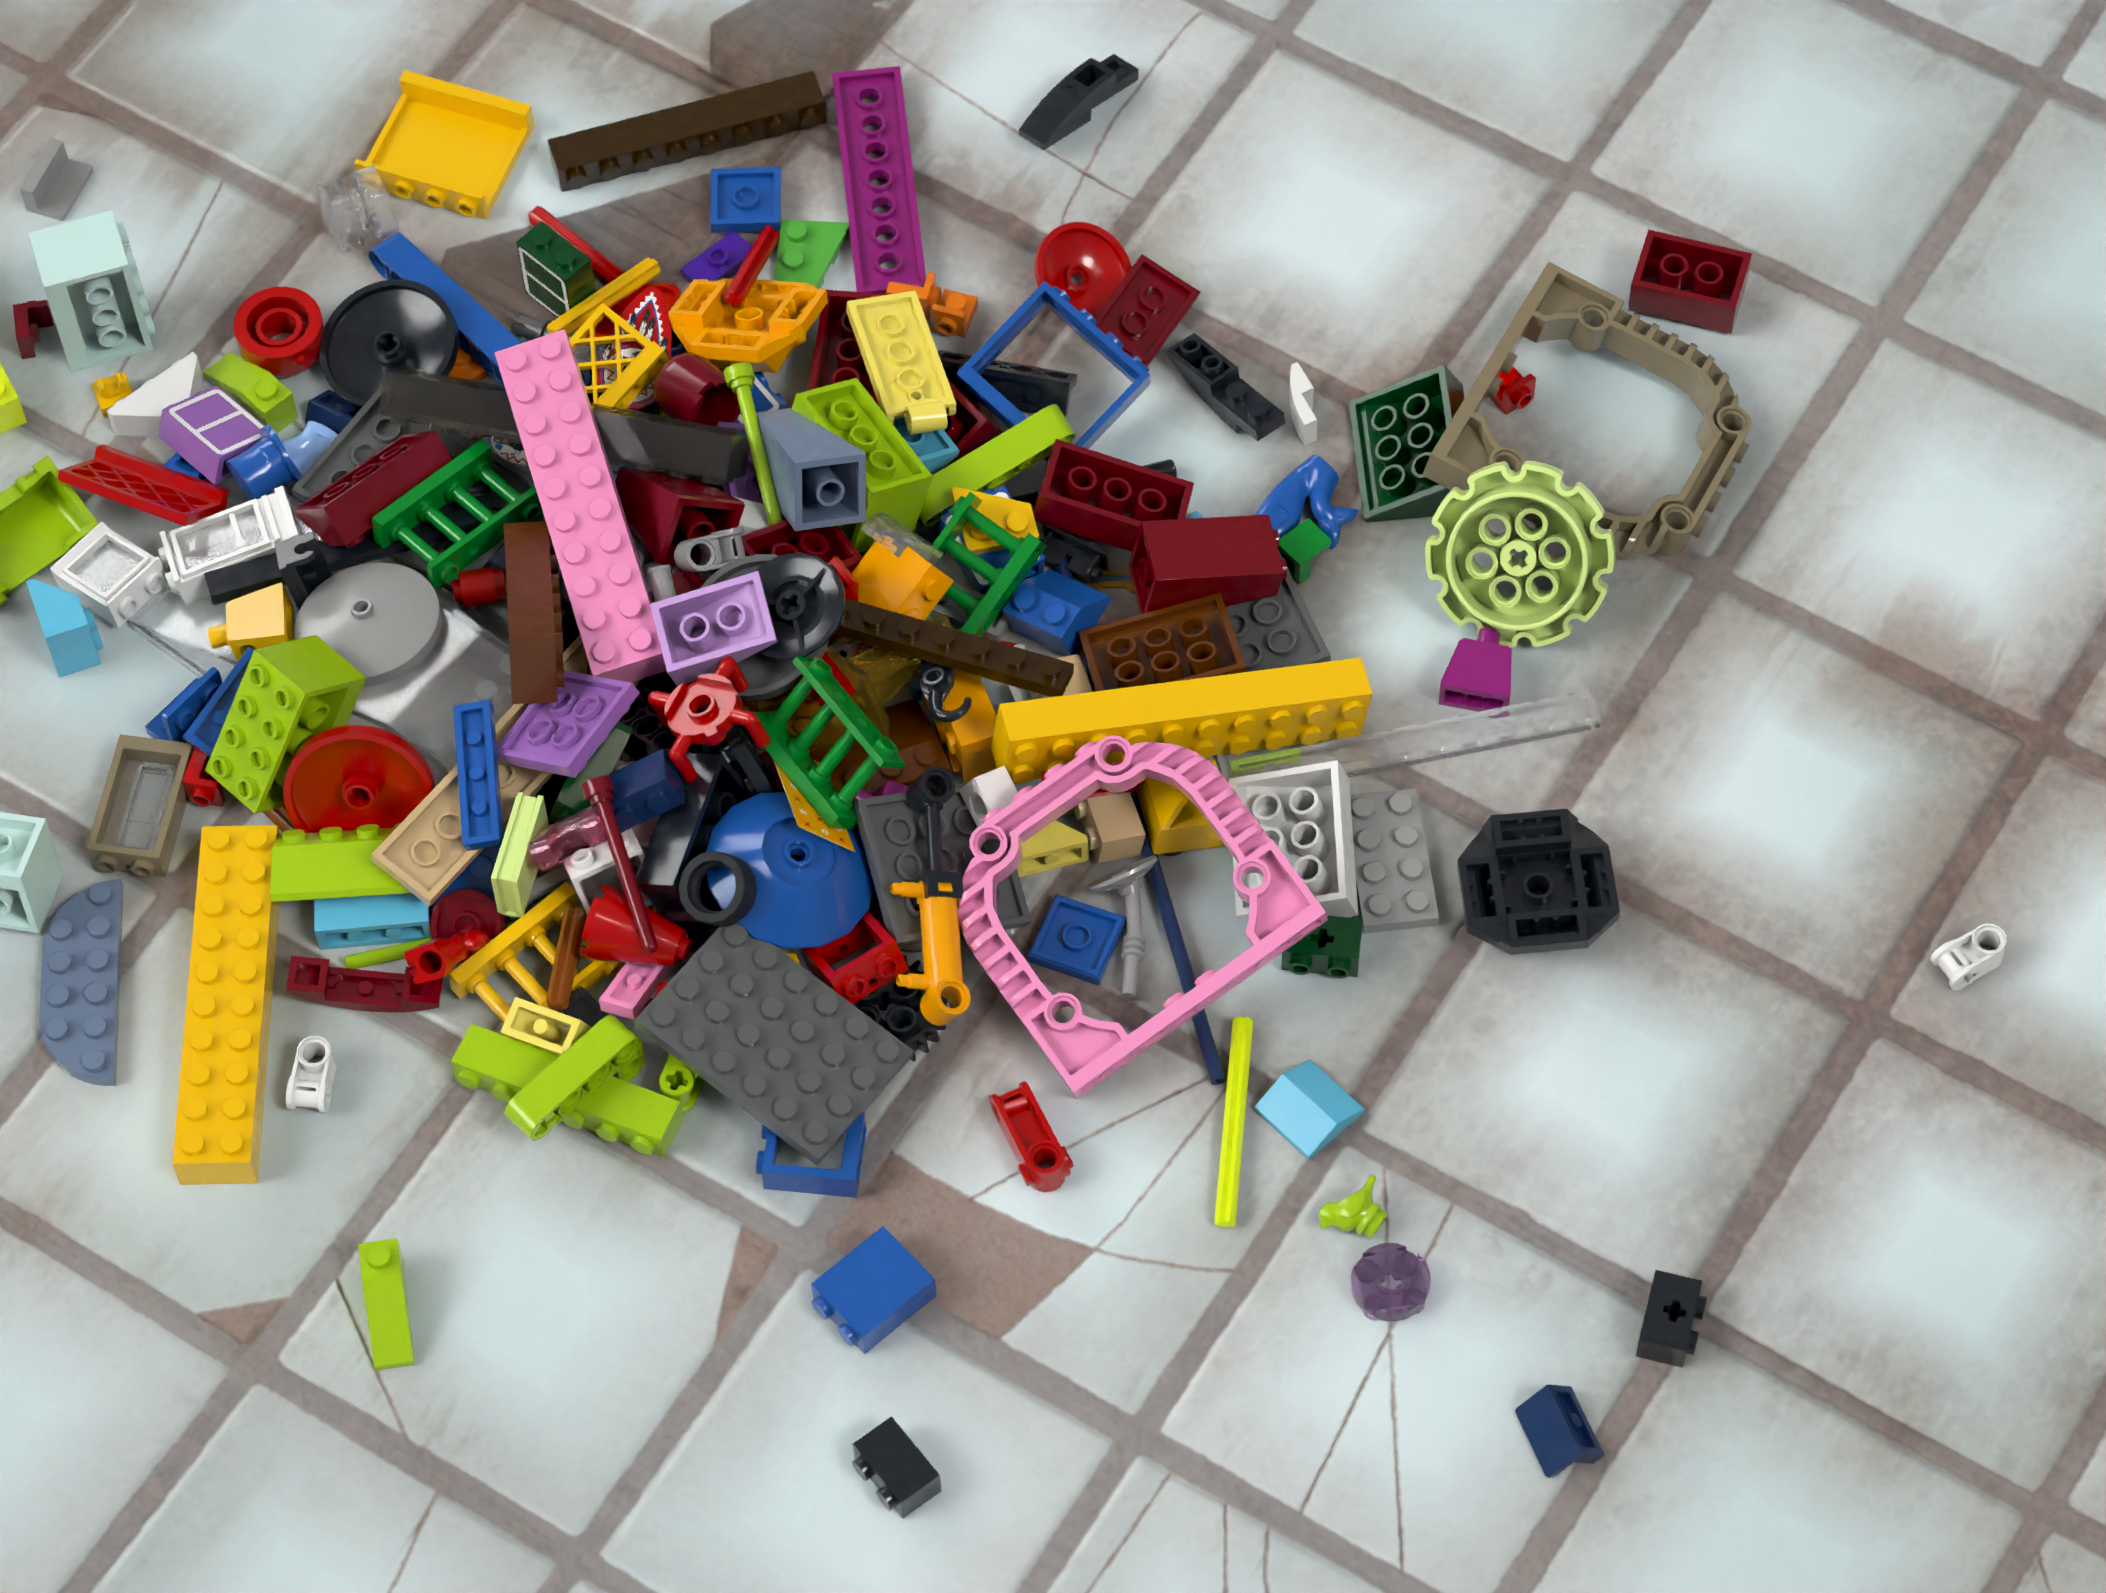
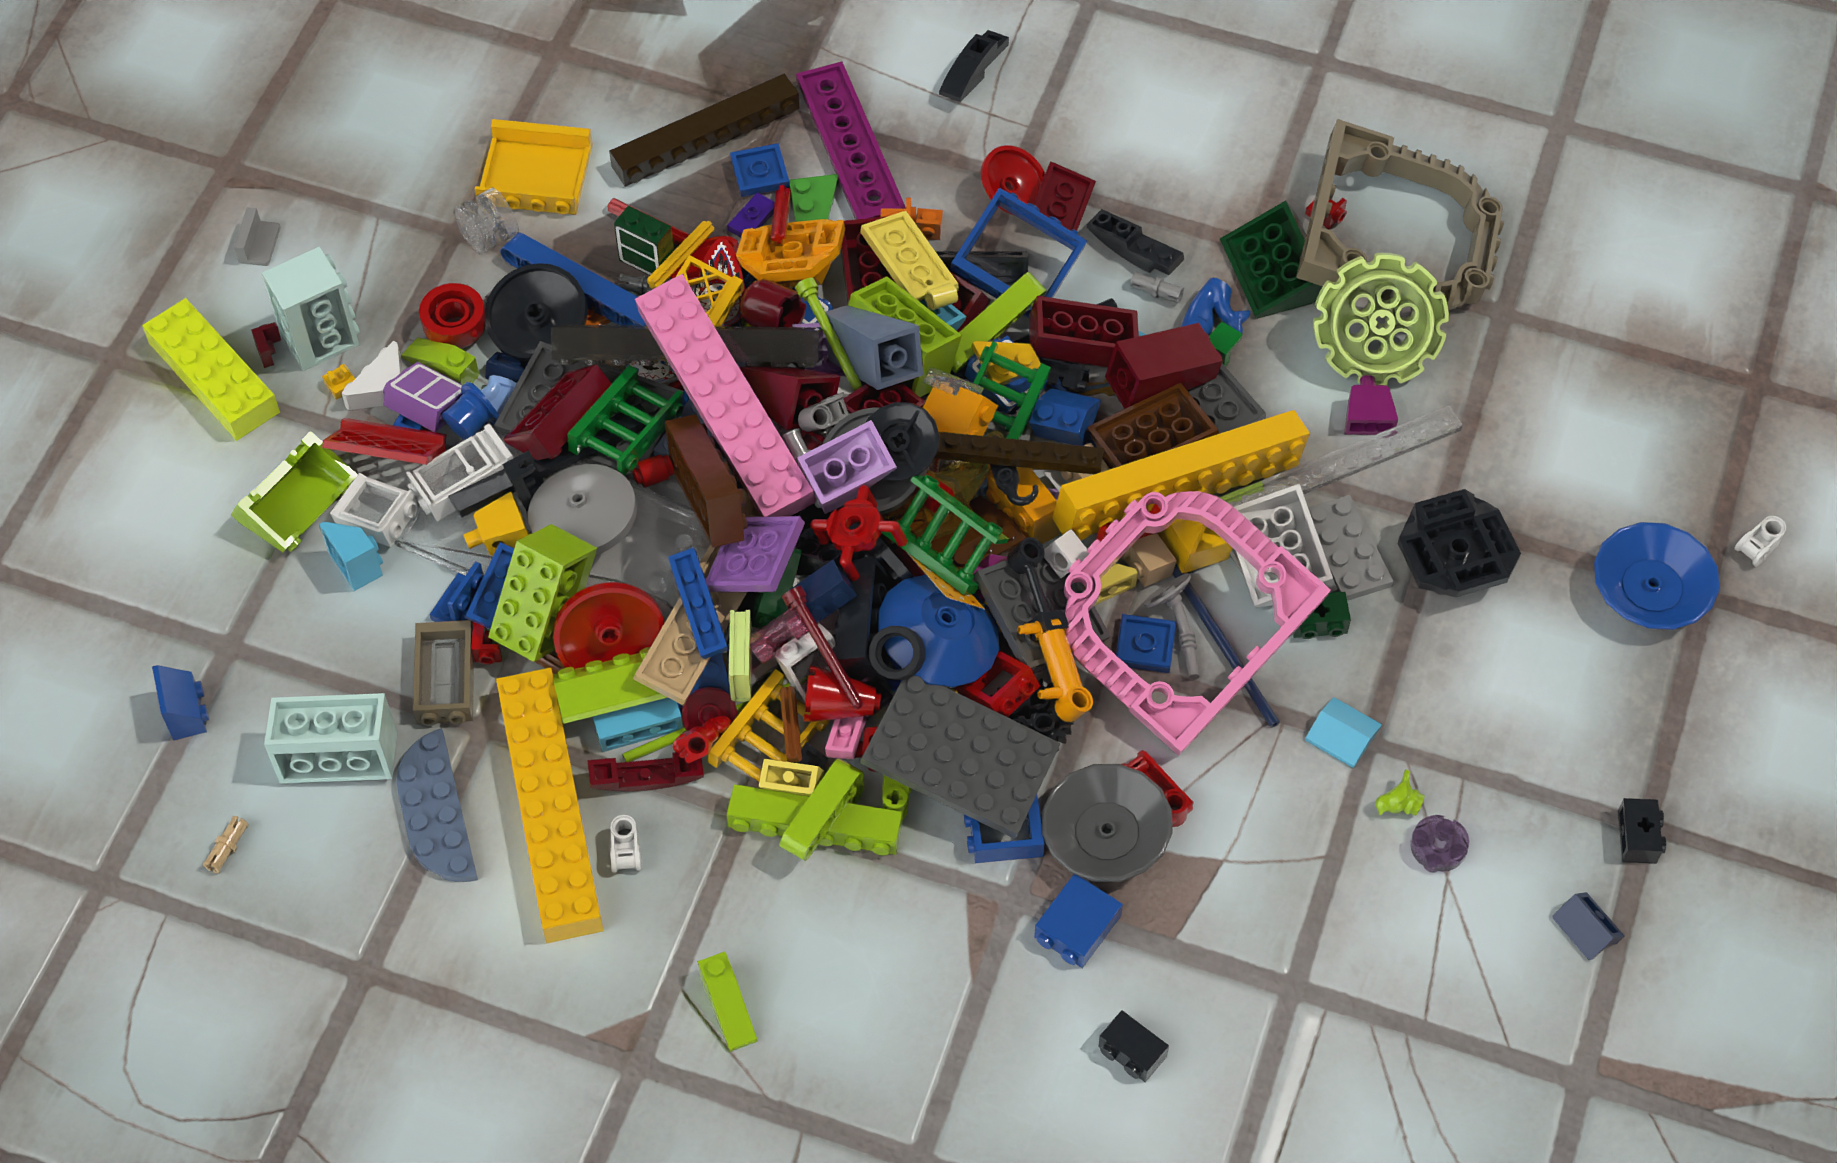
camera: 15 degrees left, 0 degrees up
(939, 1137) = (1111, 799): none -> dark grey dish
(1233, 1122) = (1295, 751): neon yellow axle -> none
(1239, 454) = (1157, 287): none -> light grey pin
(1301, 403) = (1187, 242): white slope -> none
(1689, 281) = (1429, 118): dark red brick -> none
(1805, 948) = (1659, 556): none -> blue dish

